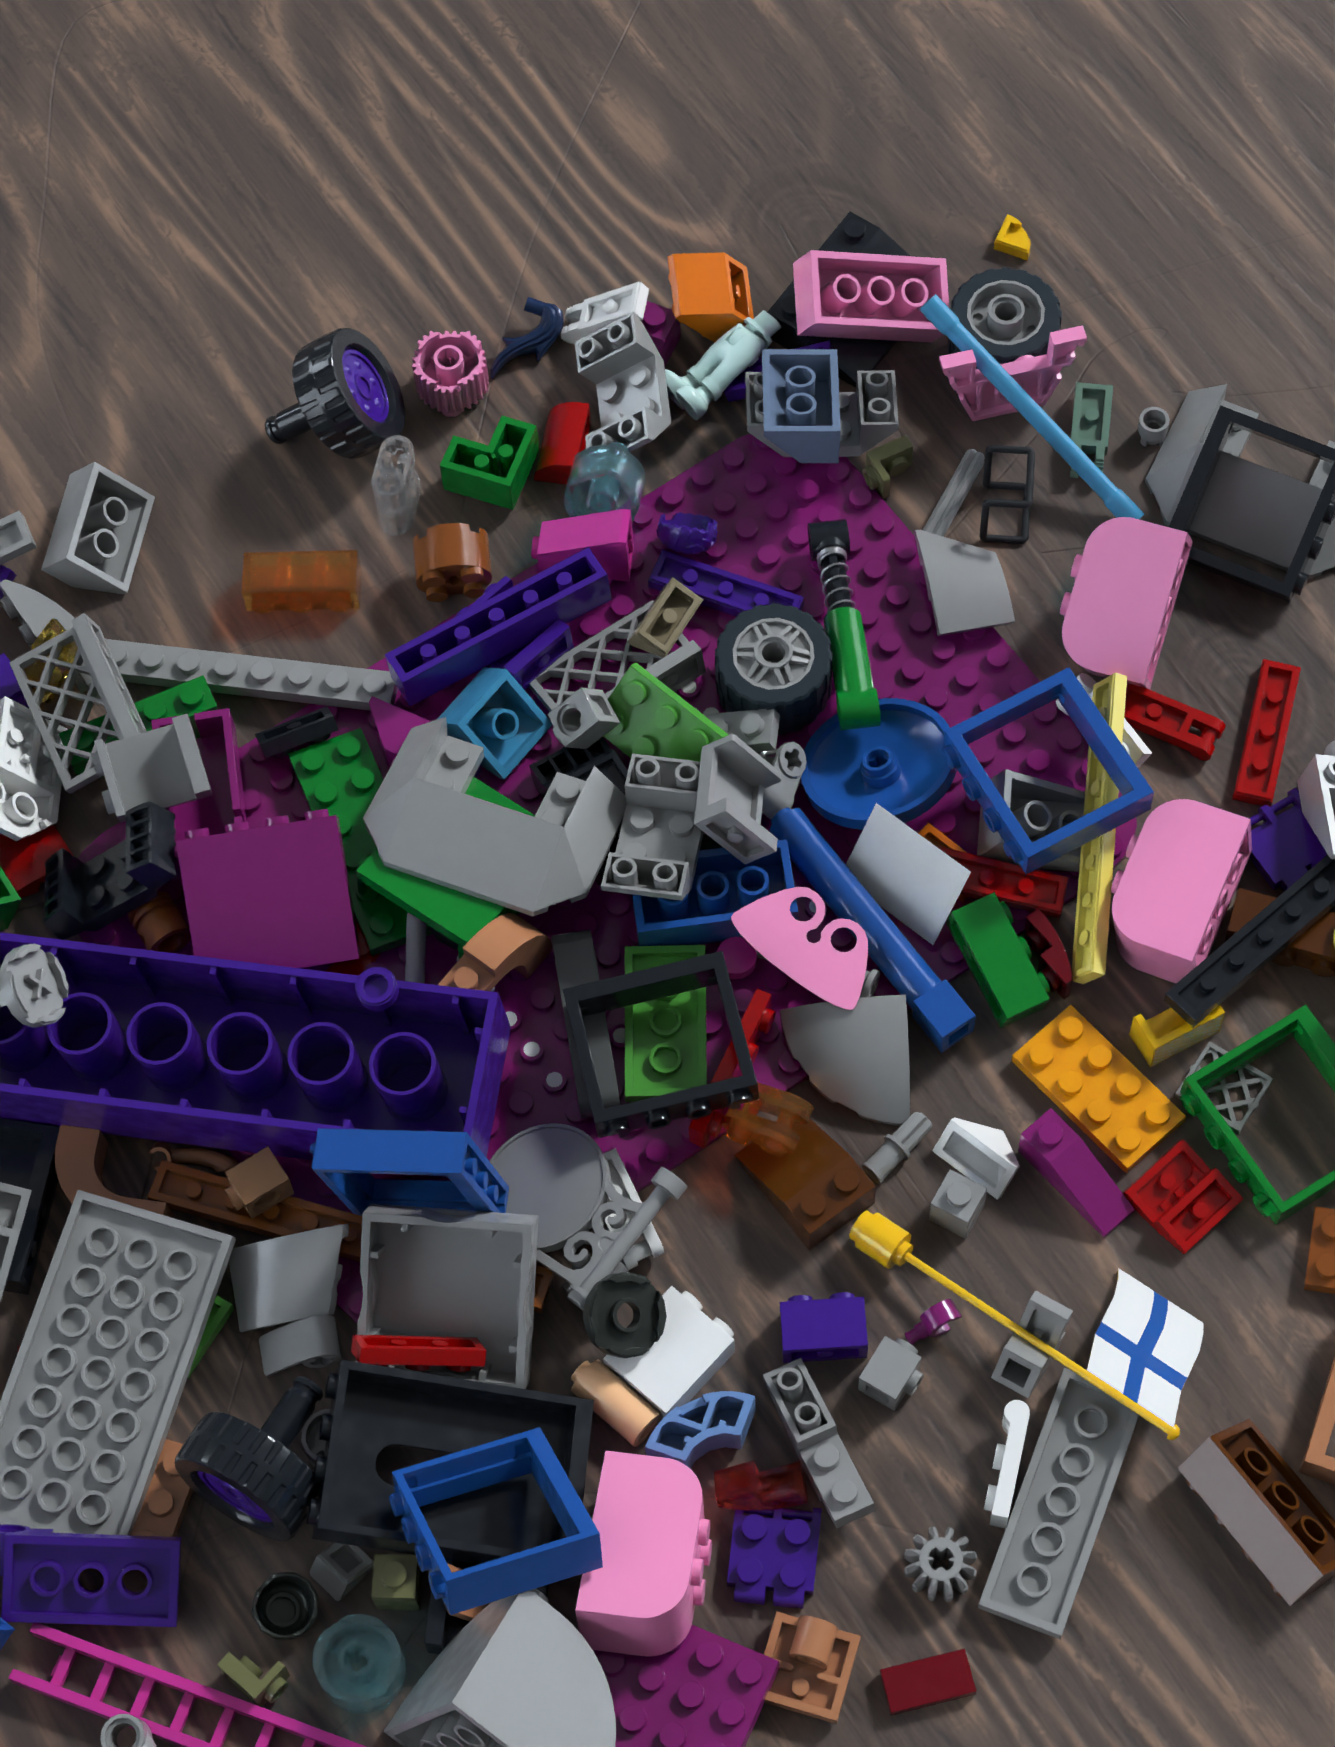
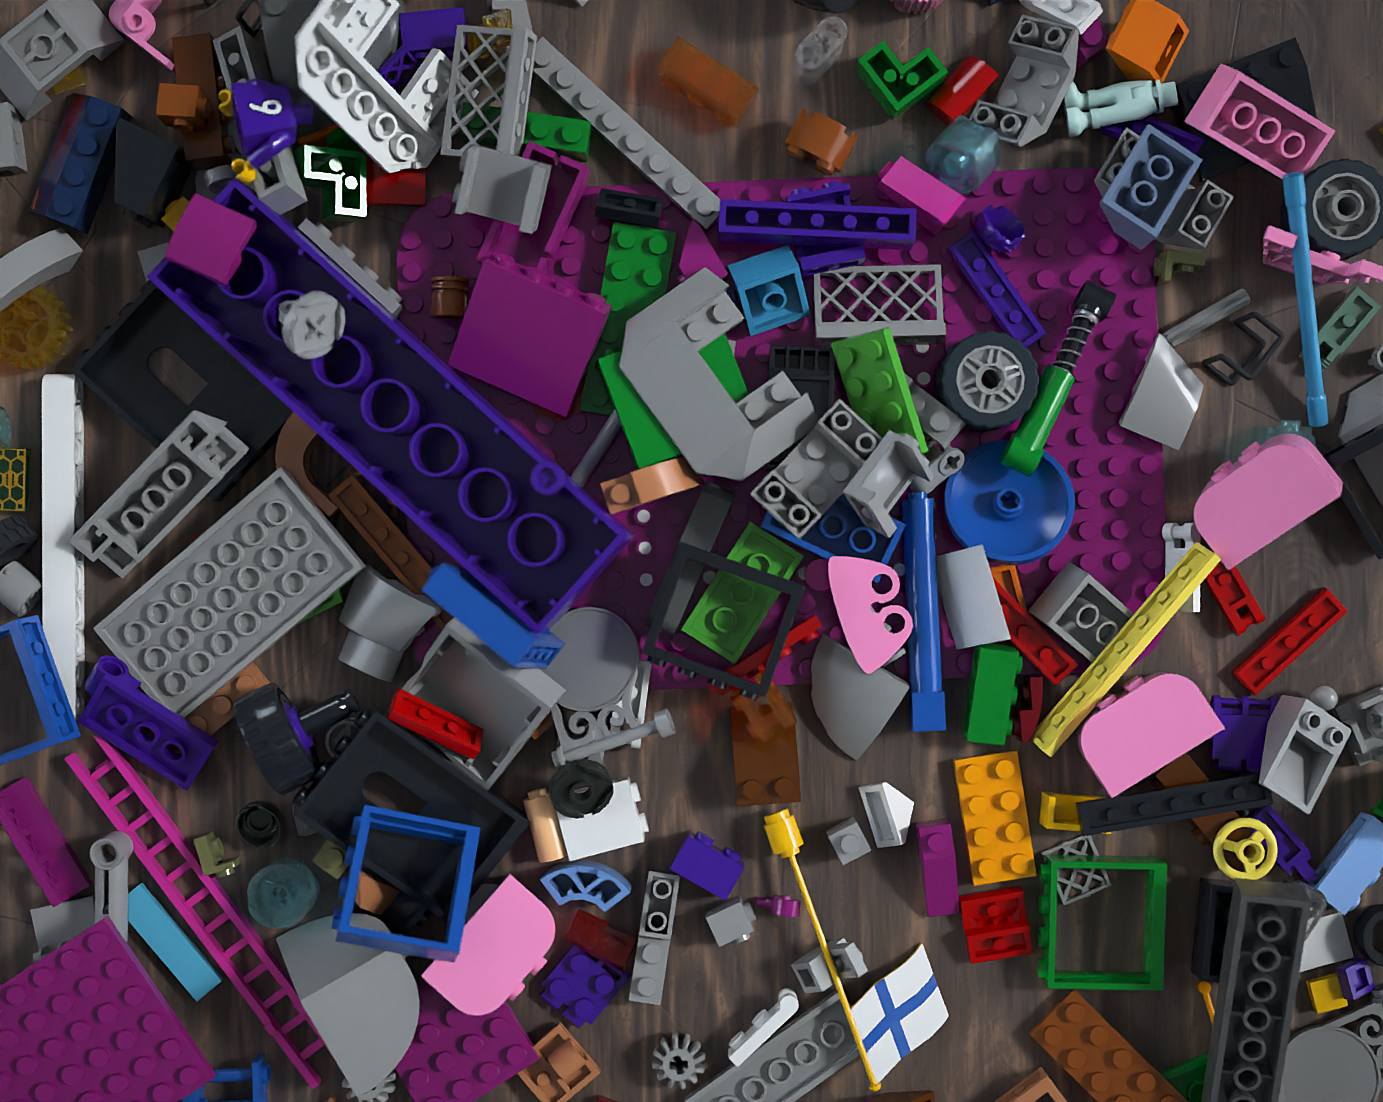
camera: 30 degrees right, 25 degrees up
(114, 882) = (434, 244): black plate -> none
(258, 1183) = (400, 539): medium nougat brick -> none
(596, 714) = (836, 347): light grey brick -> none
(665, 619) = (938, 289): dark tan slope -> none
(897, 1147) = (838, 772): light grey axle -> none
(1108, 749) = (1166, 600): blue window -> none

